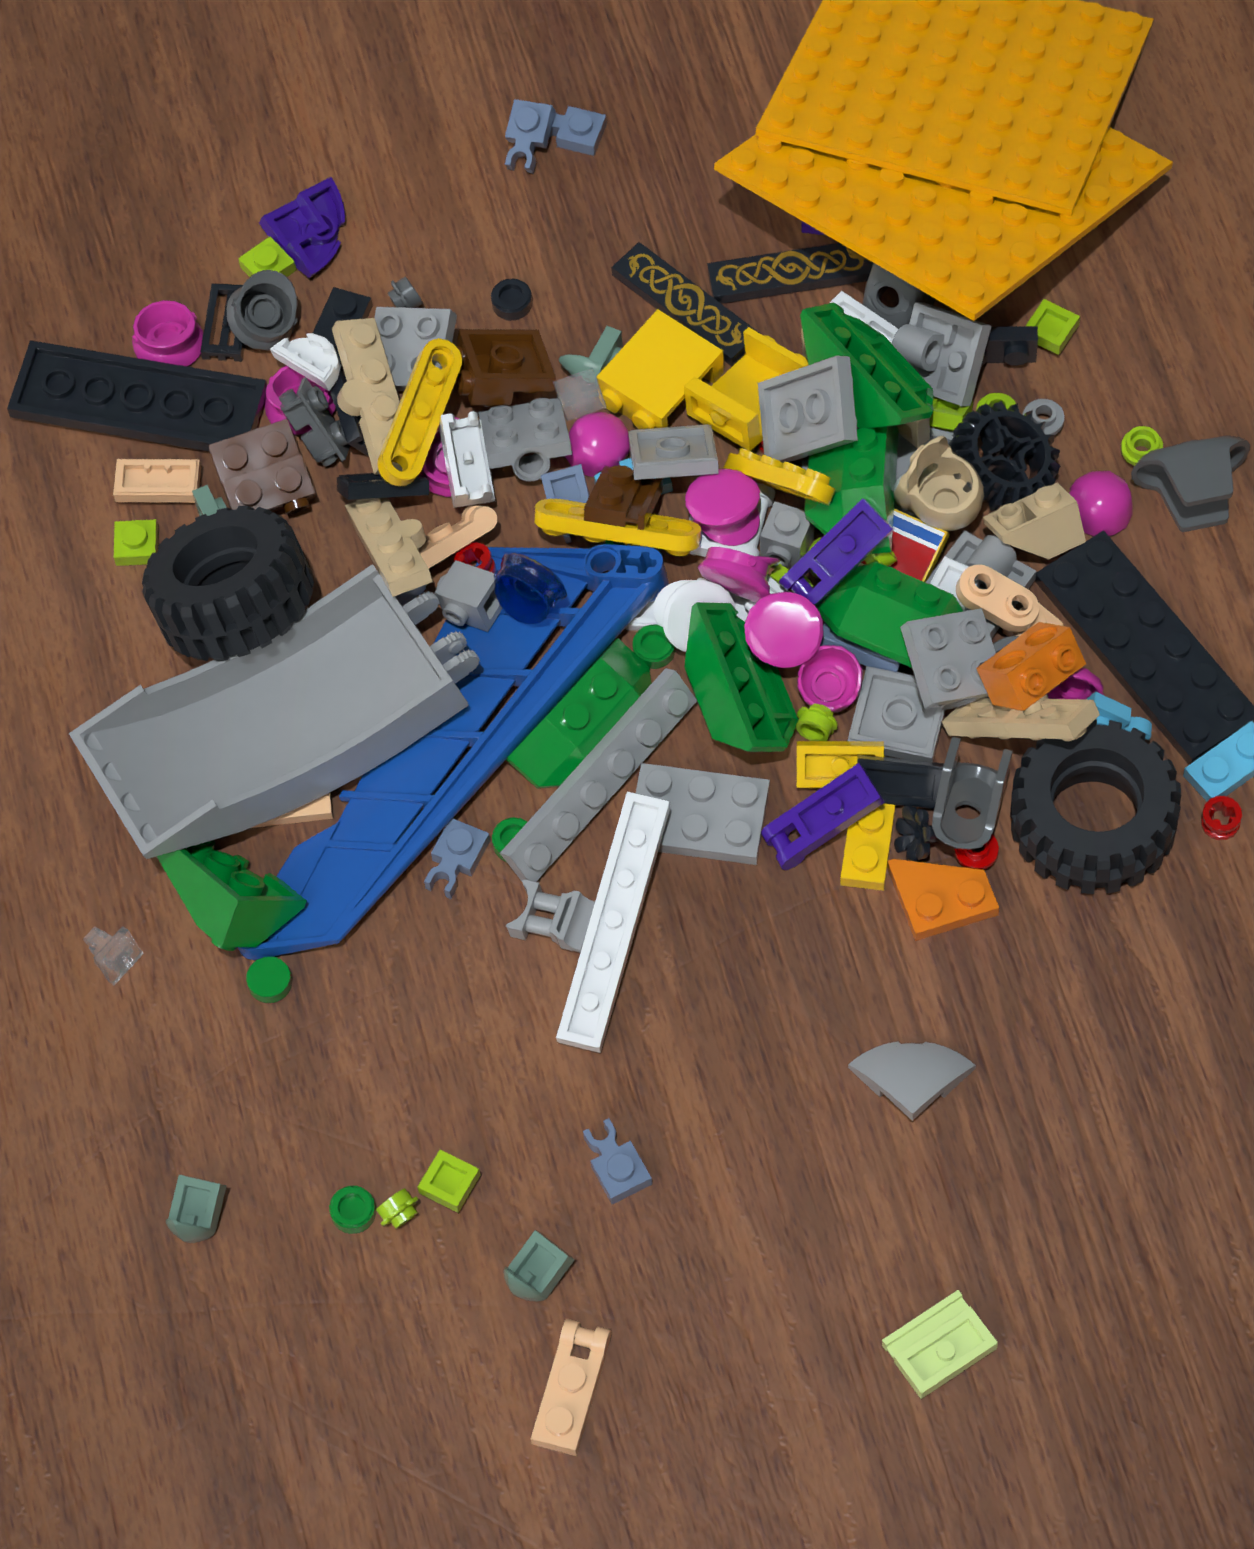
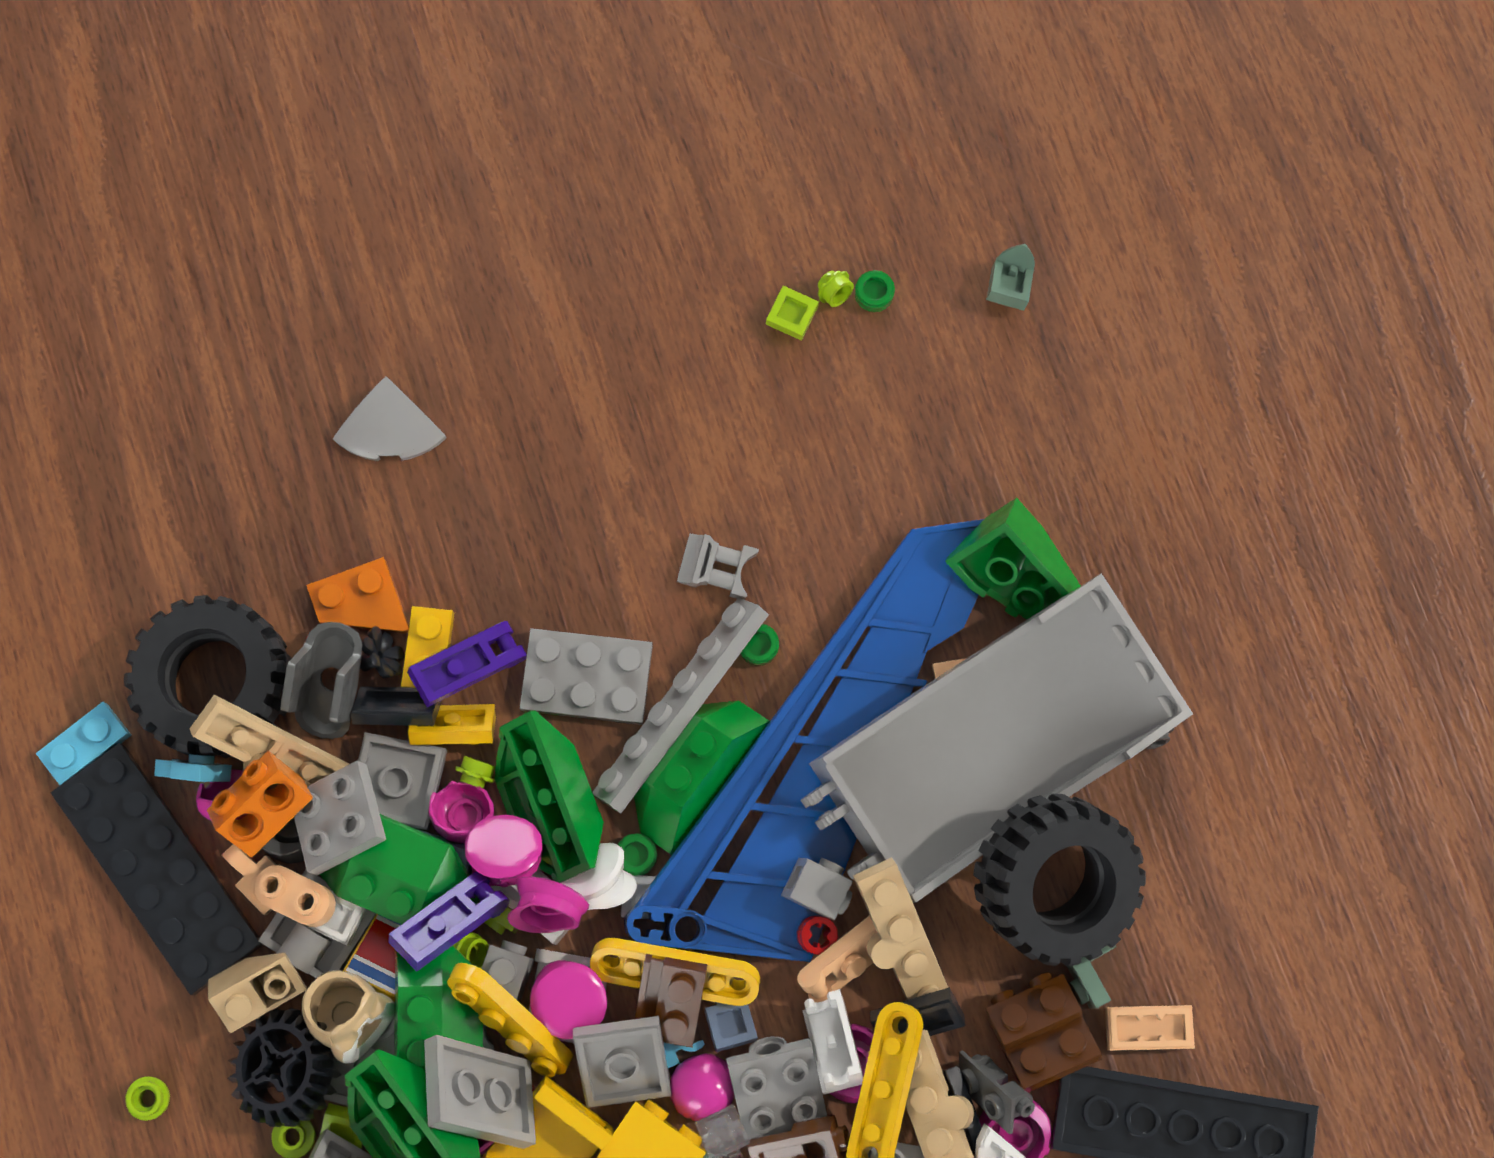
camera: 170 degrees right, 15 degrees up
(113, 953) = (1118, 514): clear brick -> none
(135, 541) = (1161, 958): lime plate -> none
(269, 979) = (972, 498): green tile -> none
(456, 851) = (810, 630): sand blue plate -> none
(527, 588) = (757, 886): clear blue piece -> none
(536, 1268) = (711, 236): sand green plate -> none
(570, 1389) = (676, 145): light nougat plate -> none
(613, 922) = (658, 554): white plate -> none
(617, 1167) = (646, 335): sand blue plate -> none
(939, 1344) = (367, 187): yellowish green plate -> none
(1049, 408) = (235, 1141): light grey plate -> none
(1102, 502) = (192, 1031): dark pink hair -> none
(1194, 478) = (89, 1050): dark grey piece -> none
(1212, 826) = (84, 680): red bush -> none

